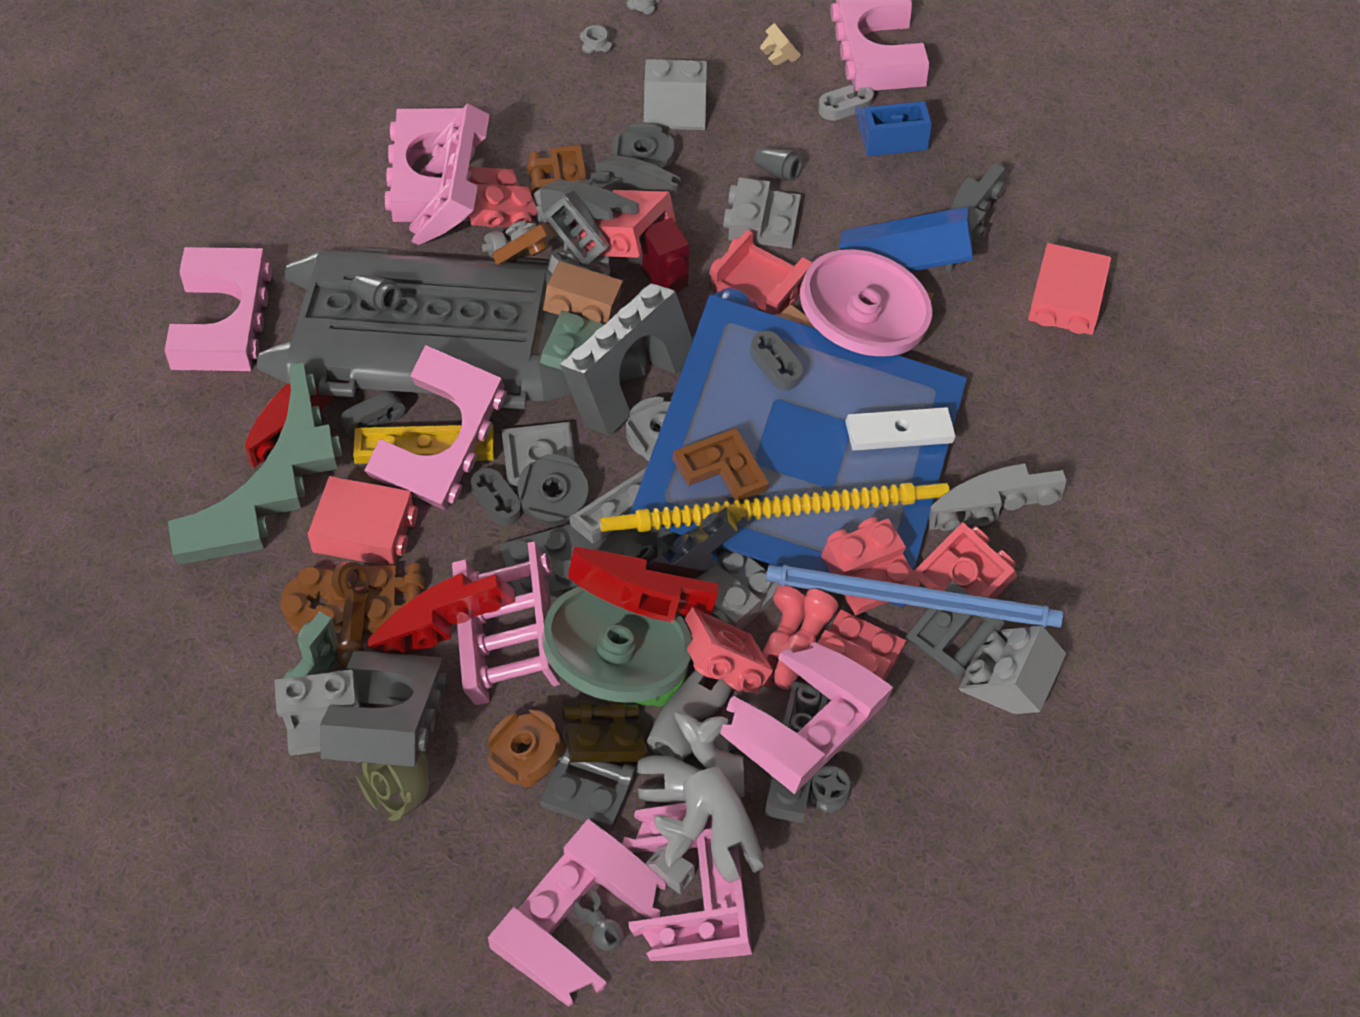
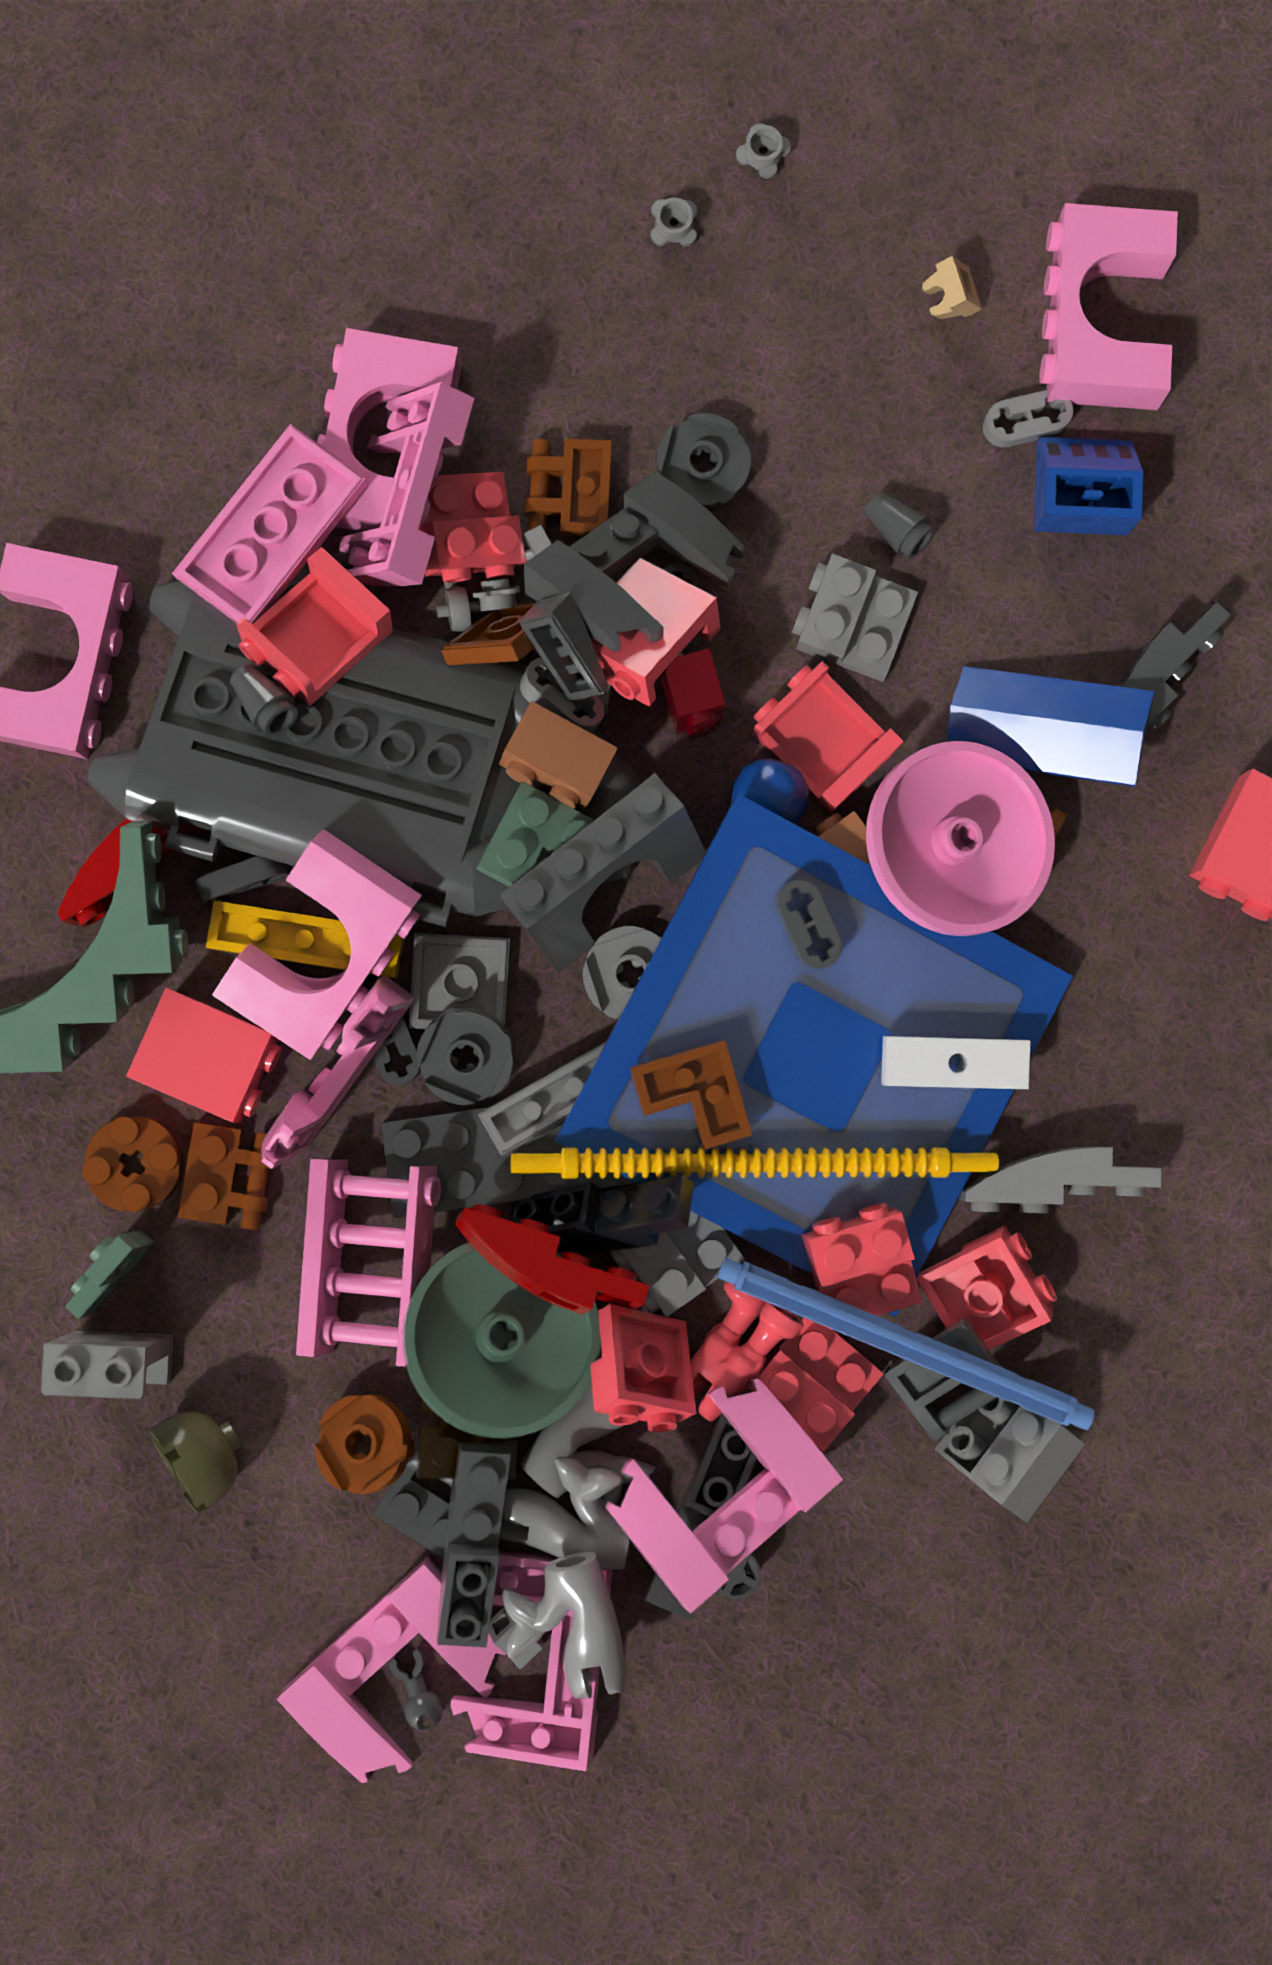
camera: 10 degrees right, 30 degrees up
(353, 608) = (166, 1245): reddish brown piece -> none
(363, 212) = (270, 527): none -> bright pink tile
(390, 733) = (192, 1445): dark grey arch -> none
(408, 253) = (316, 629): none -> coral panel
(429, 615) = (278, 1247): red slope -> none
(448, 531) = (361, 1039): none -> bright pink wedge
(623, 788) = (472, 1544): none -> dark grey slope
(675, 94) = (771, 365): light grey slope -> none

